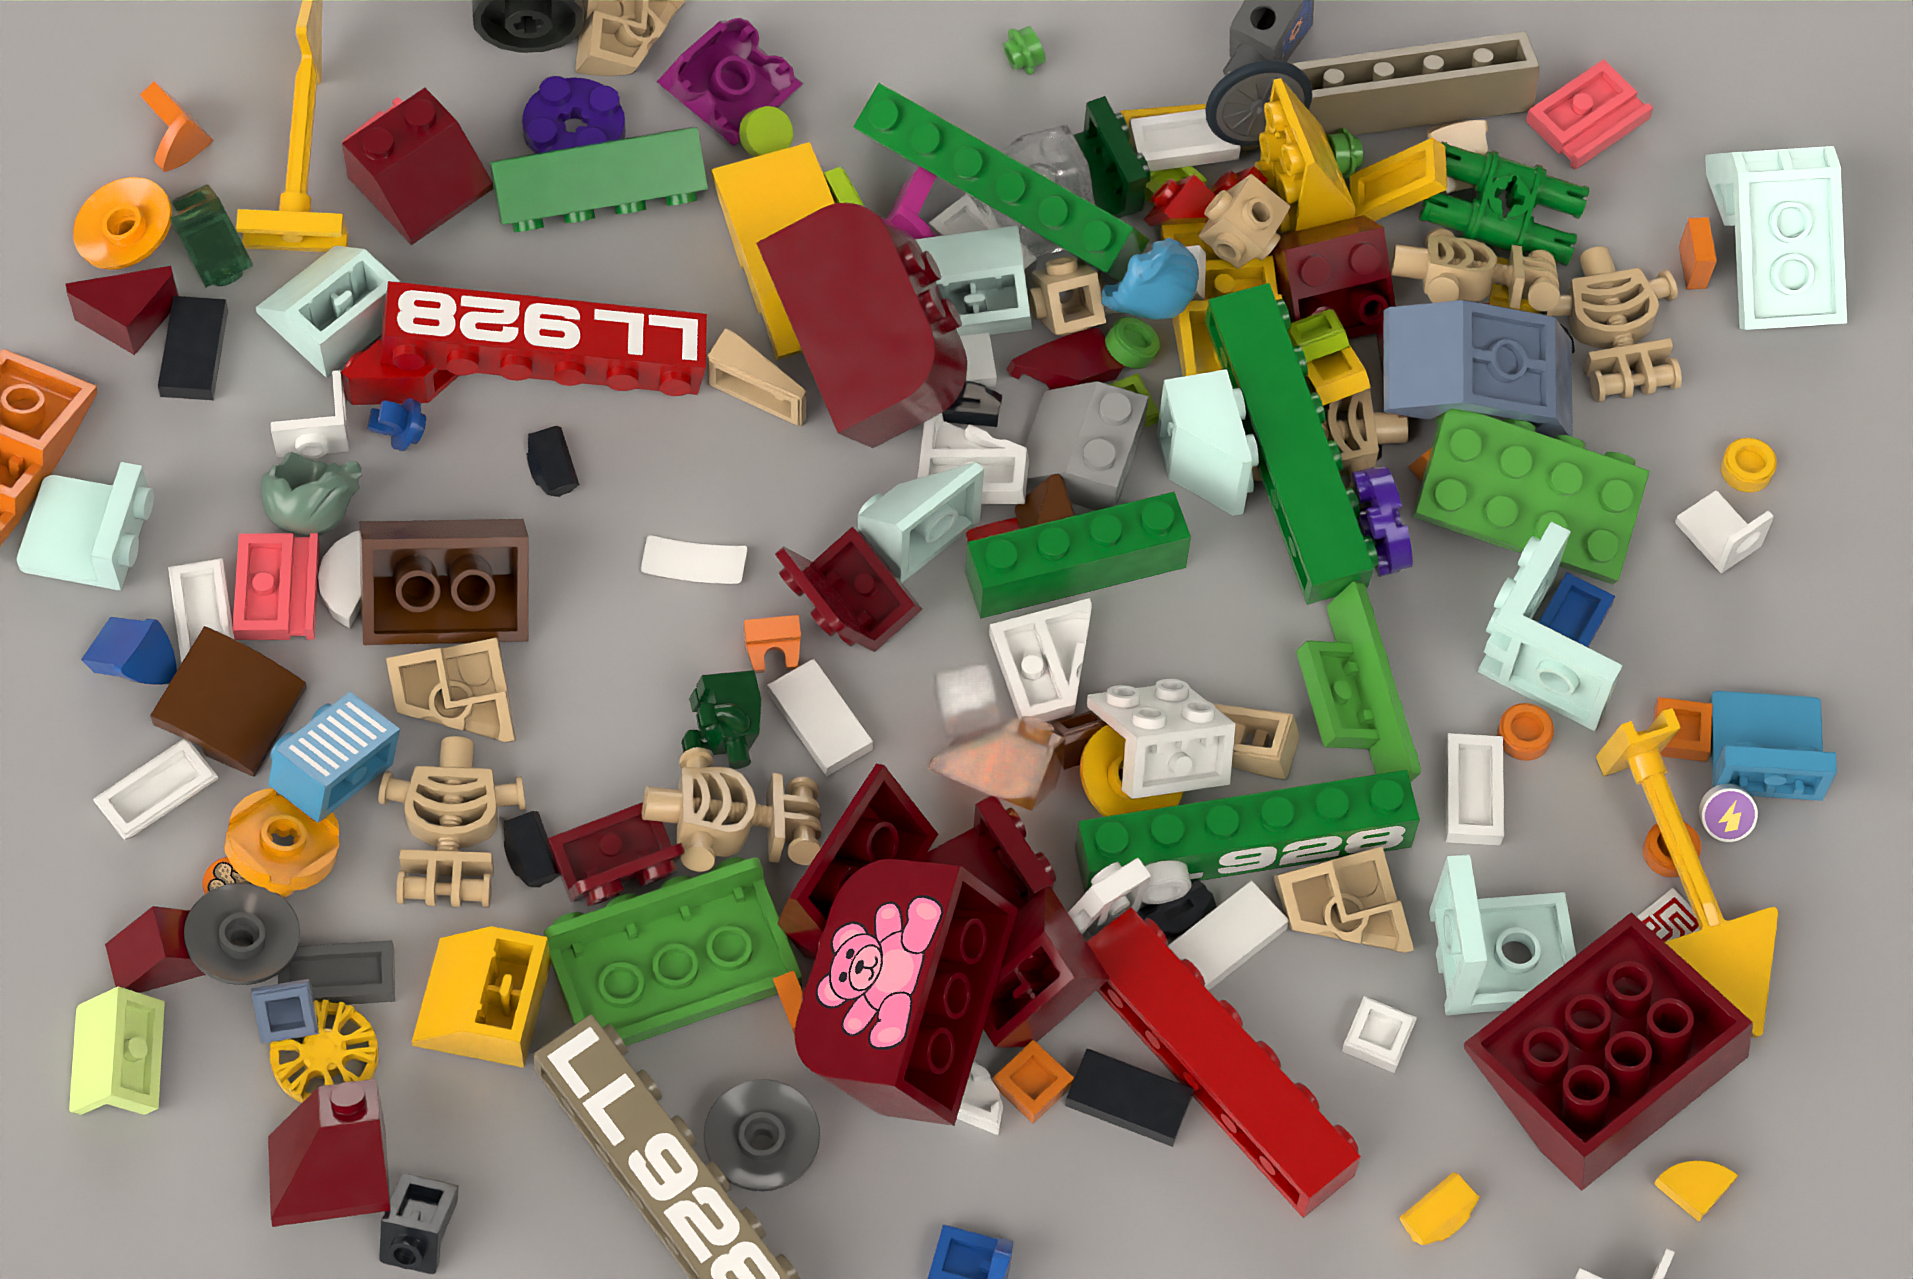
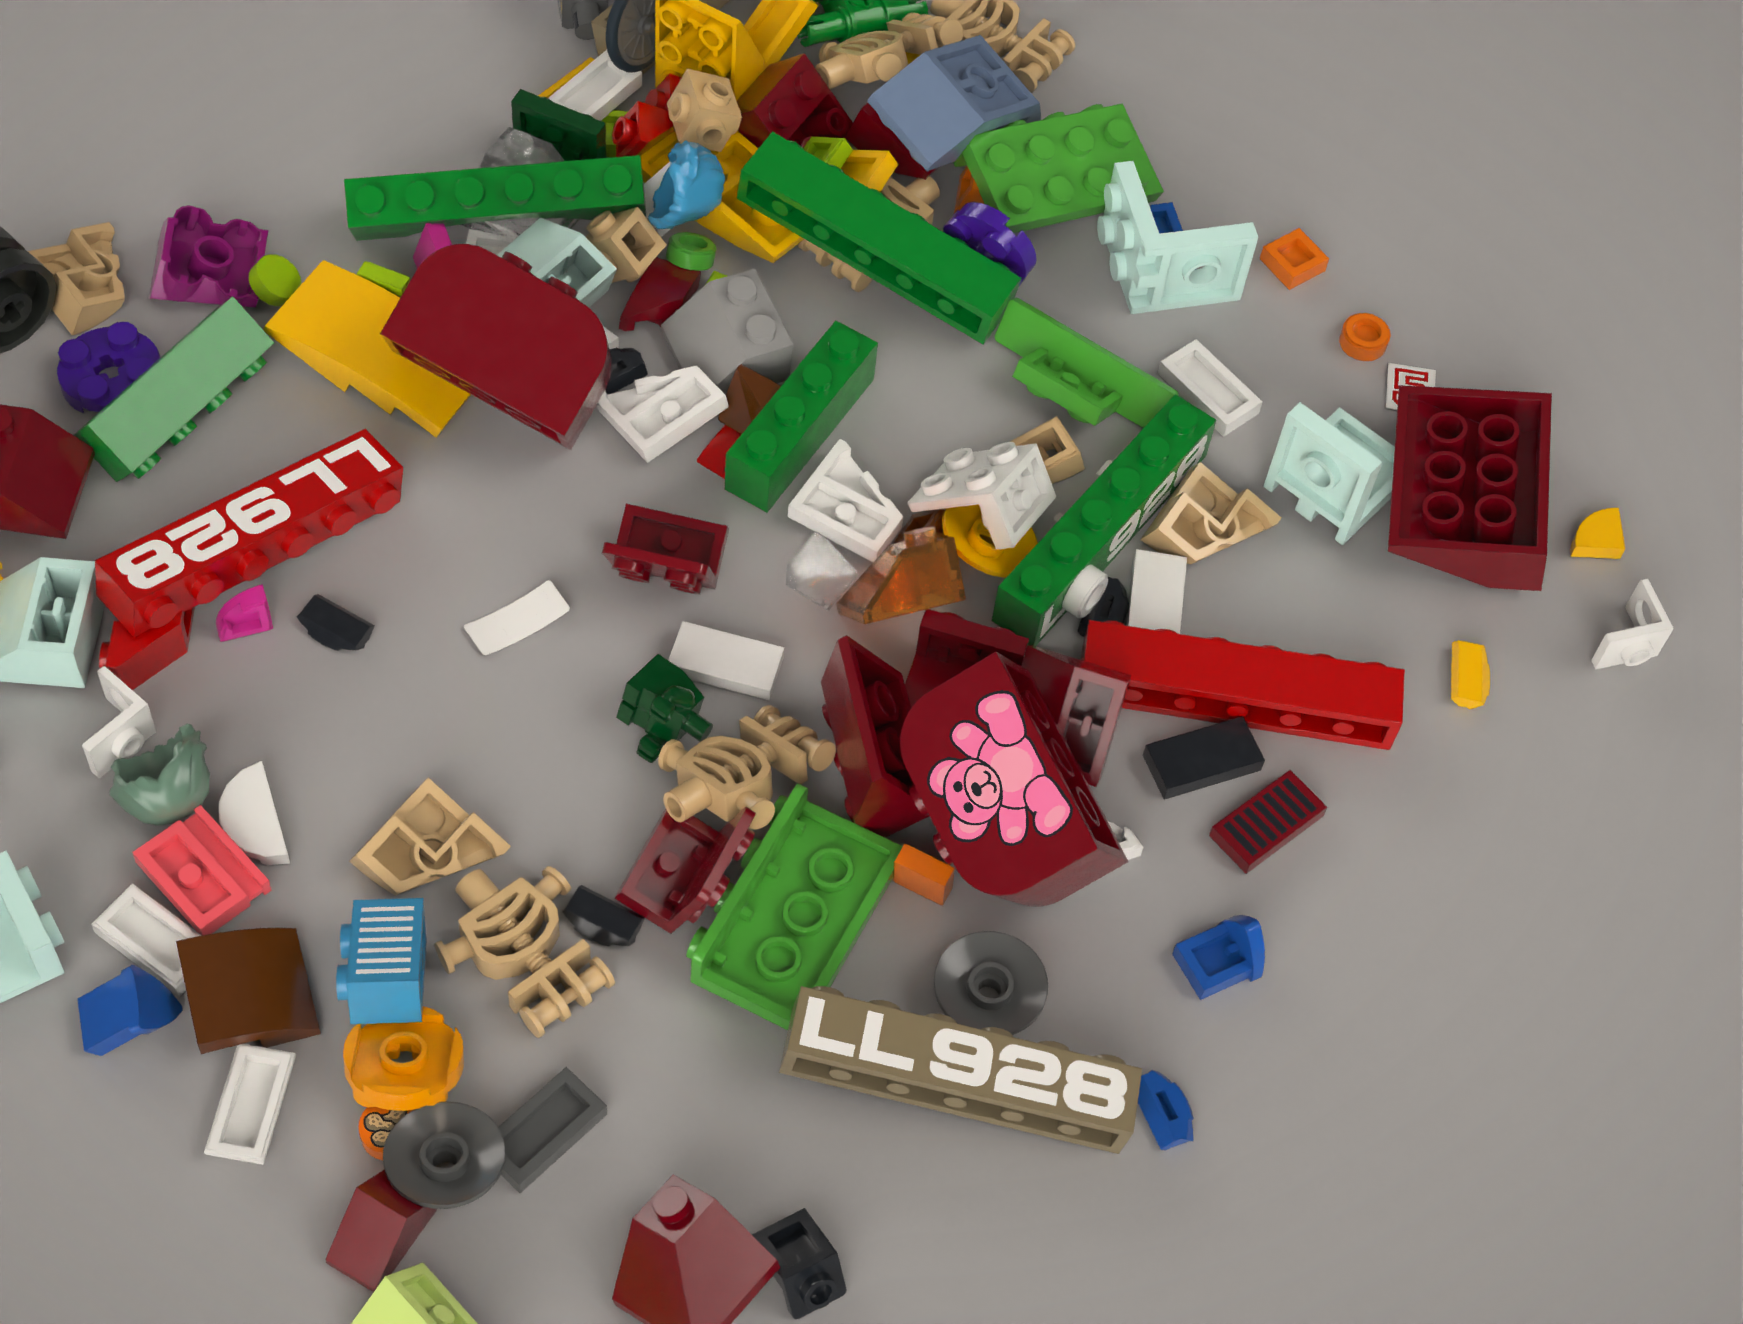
camera: 45 degrees left, 5 degrees down
(285, 1010) = (540, 1185): sand blue slope -> none
(326, 1053) = (591, 1196): yellow wheel -> none
(402, 422) = (187, 677): blue plate -> none
(444, 581) = (342, 765): reddish brown slope -> none
(484, 995) = (684, 1047): yellow slope -> none
(489, 405) = (244, 615): none -> dark pink tile
(751, 377) = (444, 454): tan slope -> none
(772, 634) = (642, 620): orange tile -> none
(922, 517) = (665, 459): light aqua slope -> none
(1024, 50) = (414, 106): bright green plate -> none
(1033, 1081) = (1130, 797): orange tile -> none
(1111, 895) = (1072, 616): white wing -> none
(1128, 1191) = (1267, 821): none -> dark red tile
(1206, 439) = (821, 273): light aqua slope -> none
(1379, 1034) = (1315, 590): white tile -> none
(1526, 731) = (1204, 324): orange tile -> none
(1721, 531) = (1193, 119): white bracket -> none
(1728, 812) = (1379, 287): tile -> none
(1728, 954) = (1466, 367): yellow piece -> none
(1748, 464) = (1163, 69): yellow tile -> none
(1770, 745) = (1361, 230): dark azure bracket -> none

